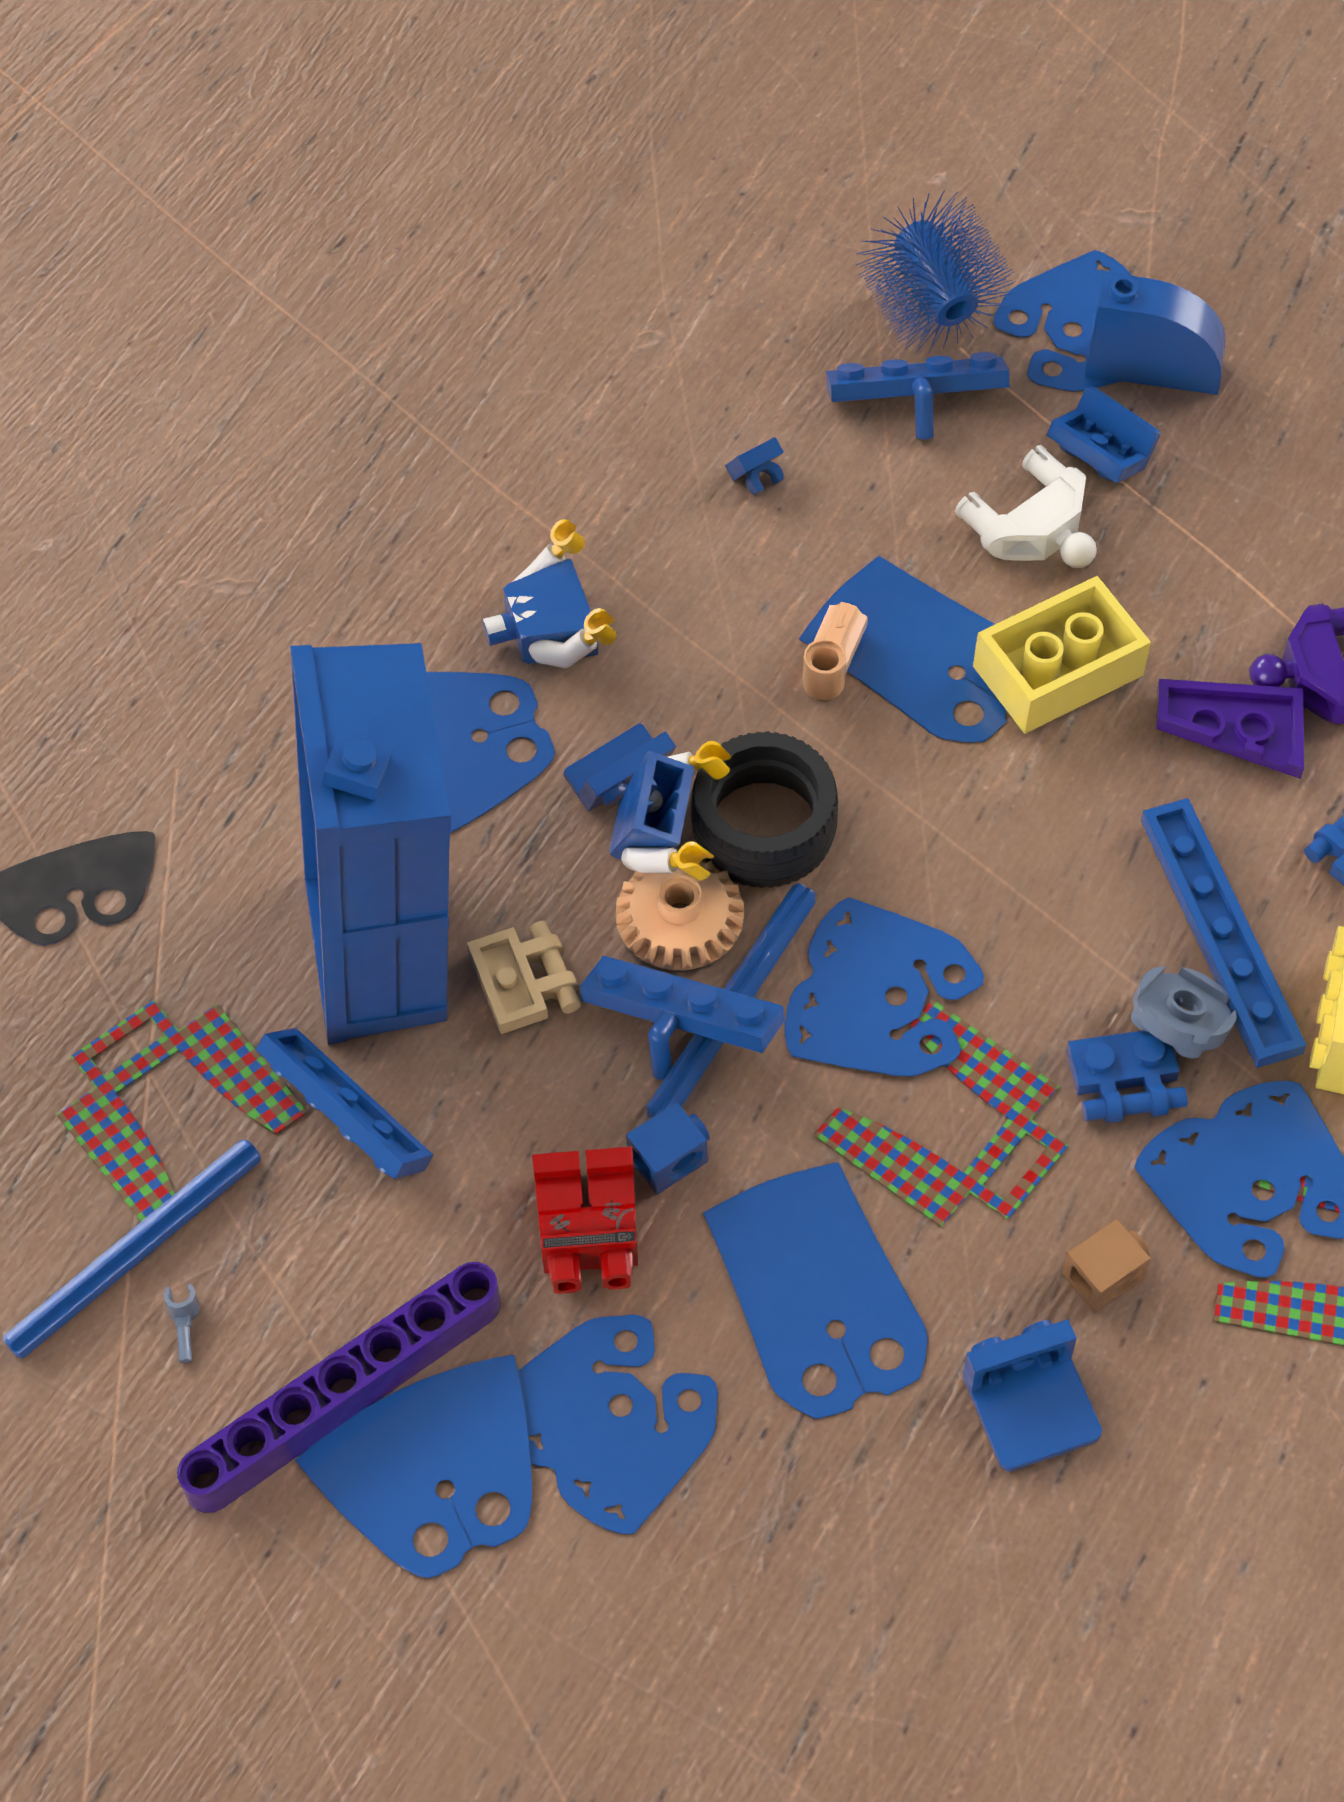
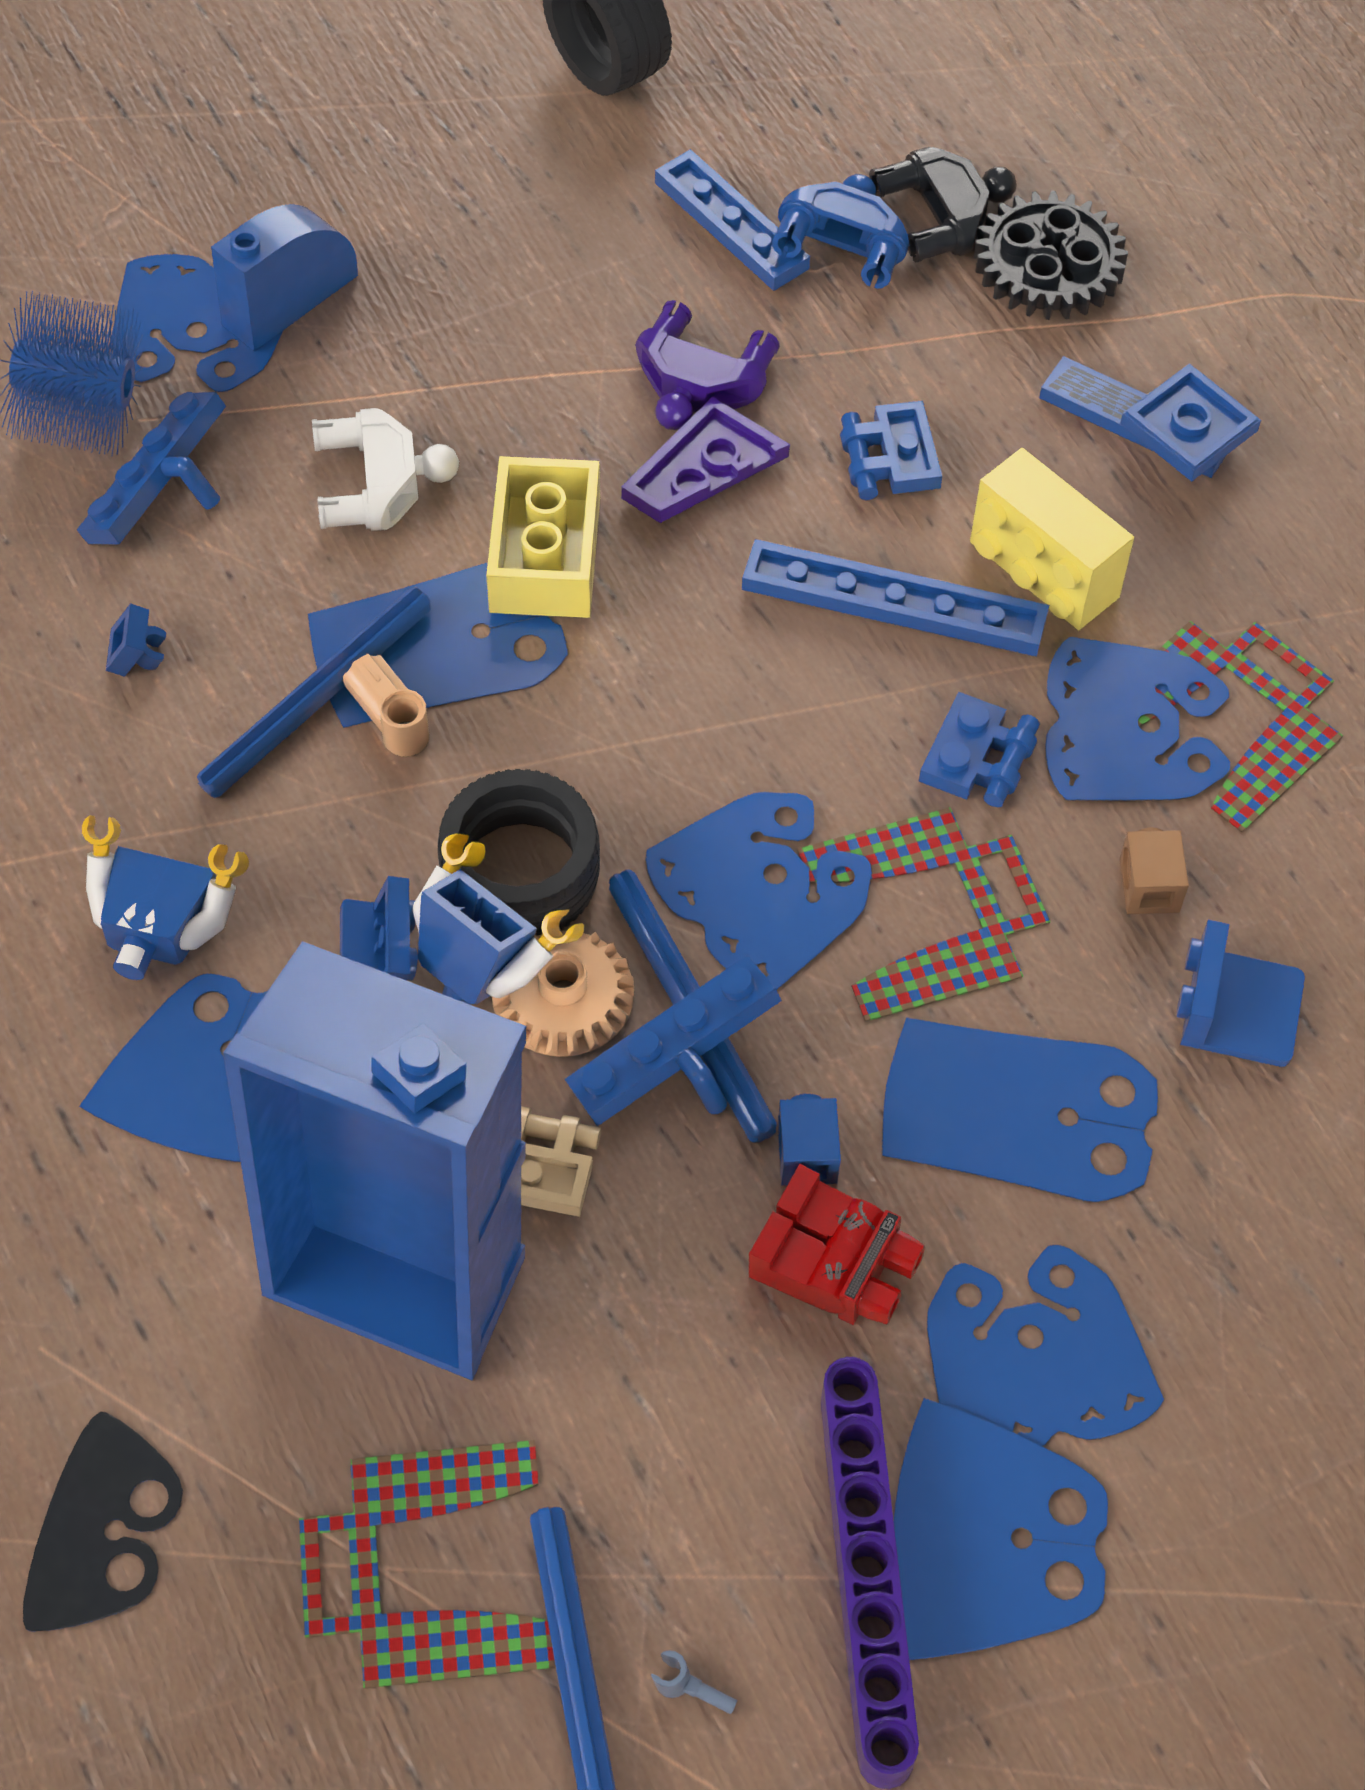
camera: 60 degrees left, 0 degrees up
(344, 1103) = (579, 1392): blue plate -> none
(809, 599) = (311, 694): none -> blue axle
(1105, 436) = (341, 370): blue bracket -> none
(1192, 1031) = (956, 669): sand blue plate -> none

